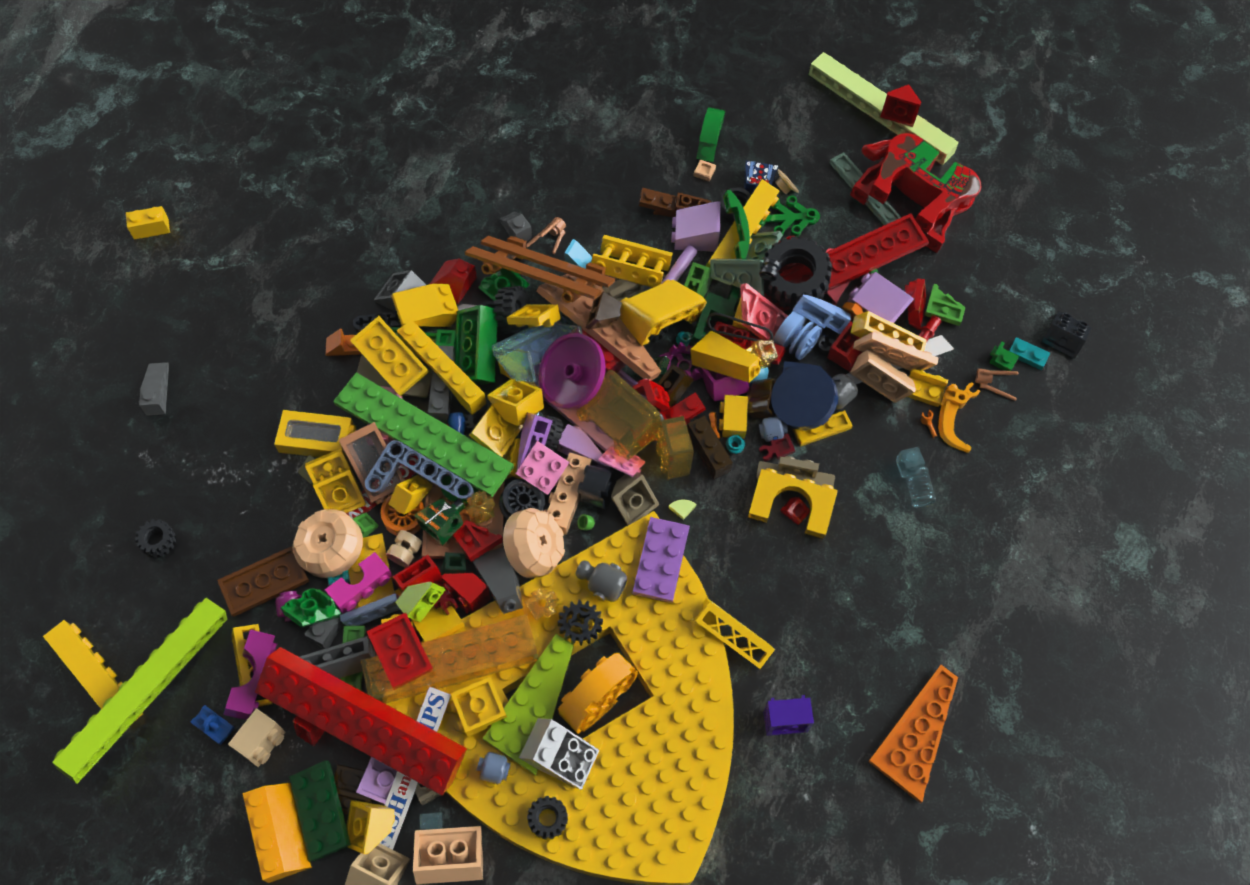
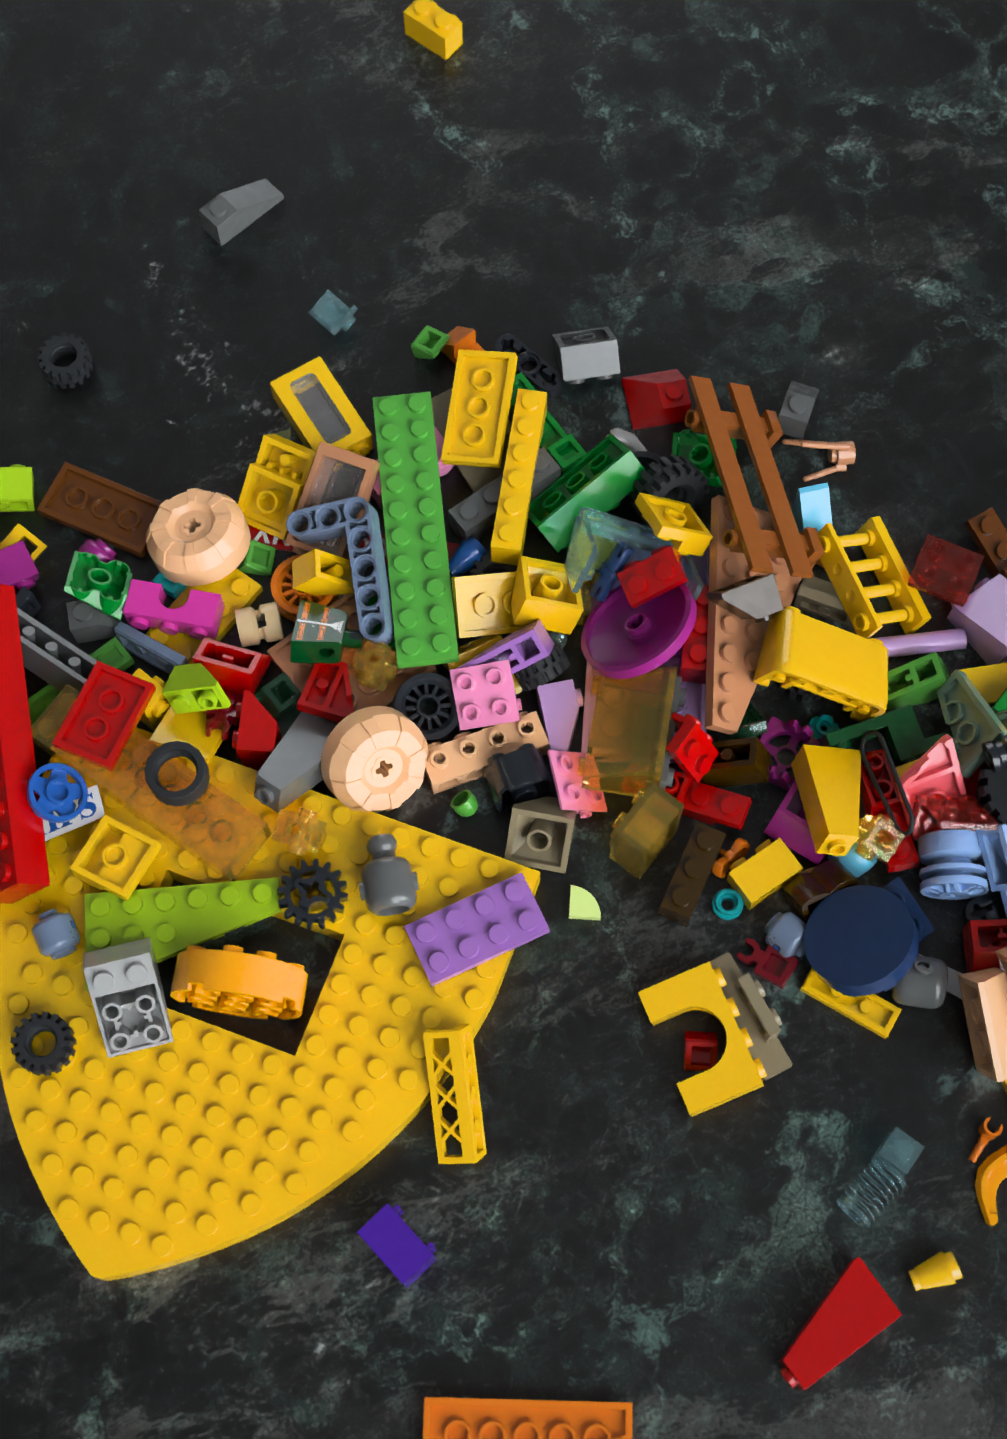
camera: 55 degrees right, 5 degrees up
(262, 388) = (333, 313): none -> clear light blue bracket
(325, 355) = (429, 343): none -> bright green slope
(419, 709) = (56, 793): none -> blue wheel
(426, 305) = (587, 394): yellow slope -> none
(460, 621) = (165, 753): none -> black tyre
(531, 348) = (609, 570): none -> dark blue pin
(554, 344) = (652, 576): none -> red bracket
(655, 229) = (945, 570): none -> clear red bracket
(777, 314) = (948, 813): none -> clear red bracket
(970, 547) = (841, 1324): none -> red slope
(975, 487) = (936, 1272): none -> yellow cone

